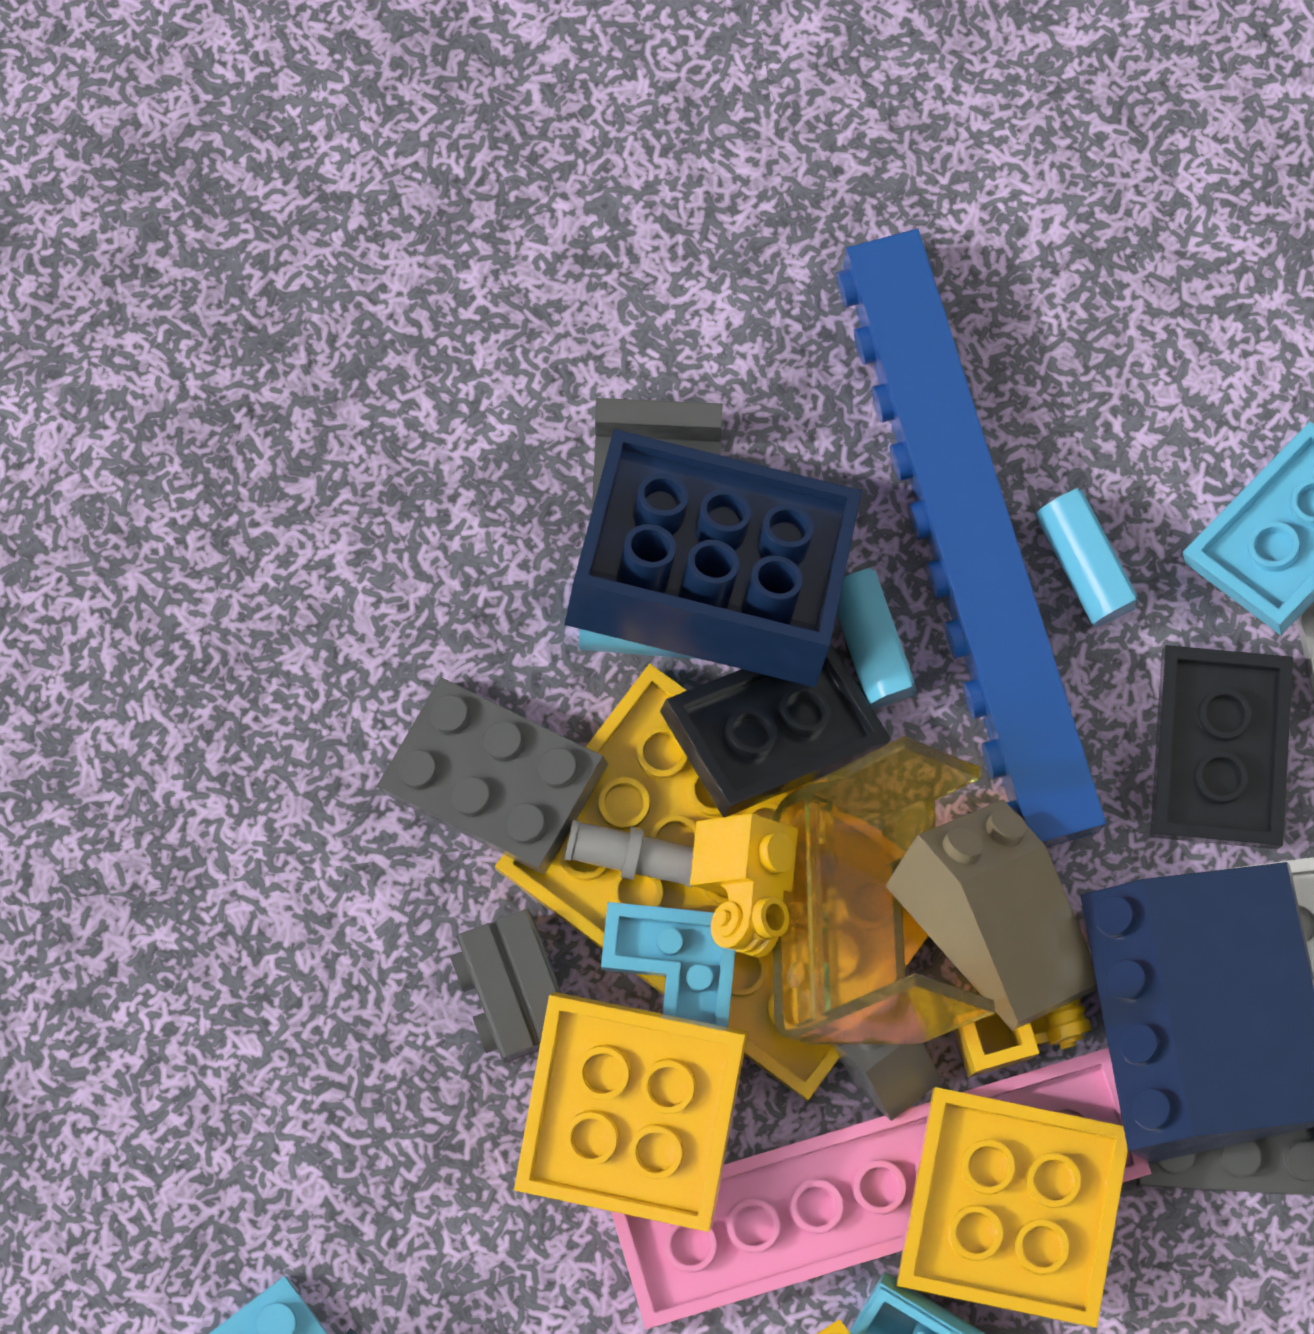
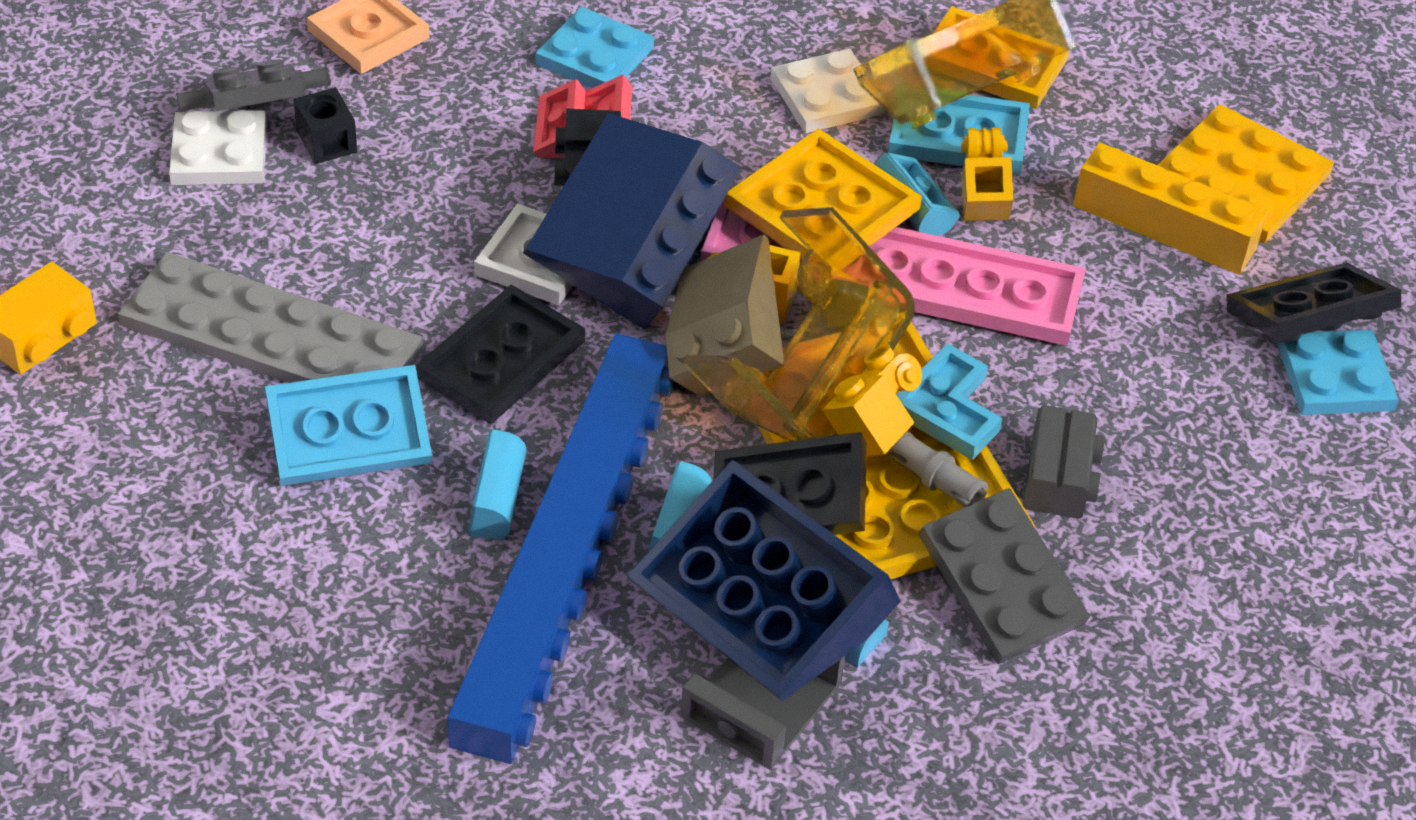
camera: 150 degrees left, 30 degrees down
(630, 1111) = (1031, 341): yellow plate -> none

